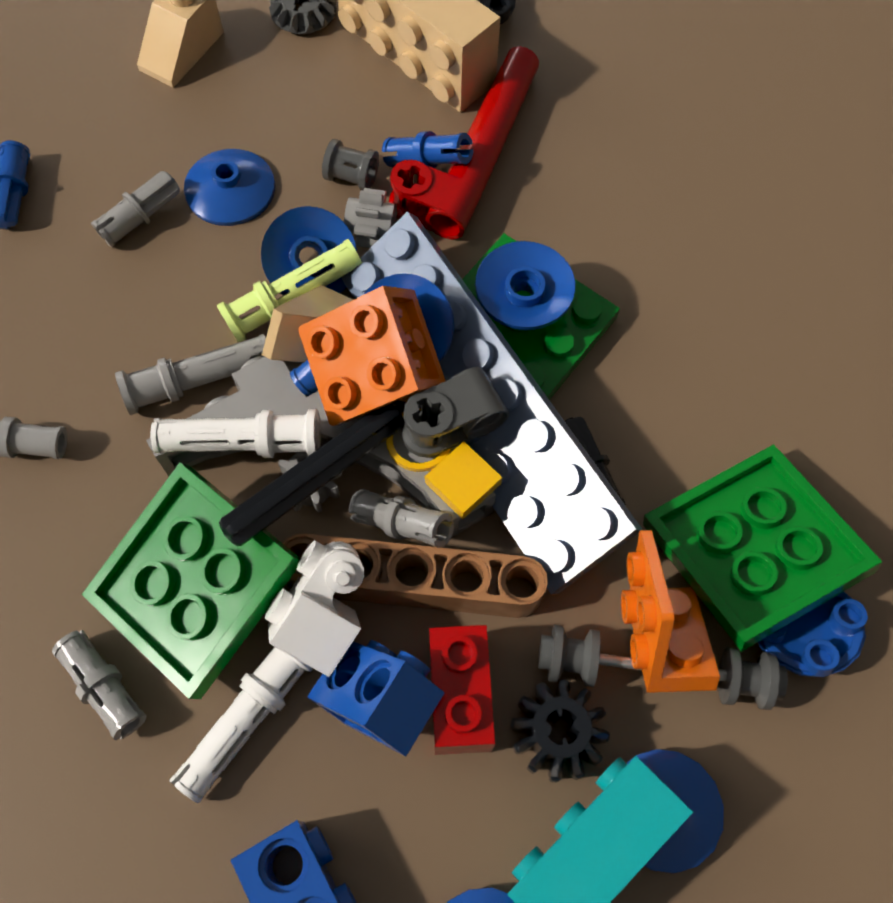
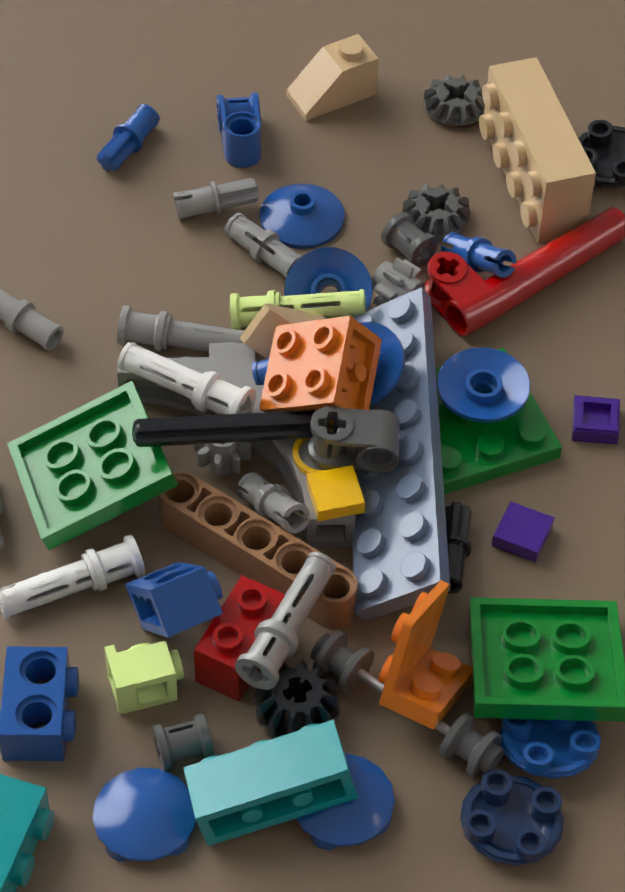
camera: 30 degrees right, 15 degrees down
(117, 124) = (240, 129): none -> blue piece
(186, 231) = (246, 232): none -> light grey pin
(308, 618) = (159, 523): white brick -> none
(367, 132) = (440, 222): none -> dark grey gear
(387, 791) = (143, 675): none -> yellowish green brick
(475, 846) = (182, 741): none -> dark grey bush
(514, 684) = (279, 634): none -> light grey pin
(626, 264) = (596, 419): none -> dark purple tile
(638, 413) = (523, 531): none -> dark purple tile
(831, 734) = (512, 818): none -> dark blue dish

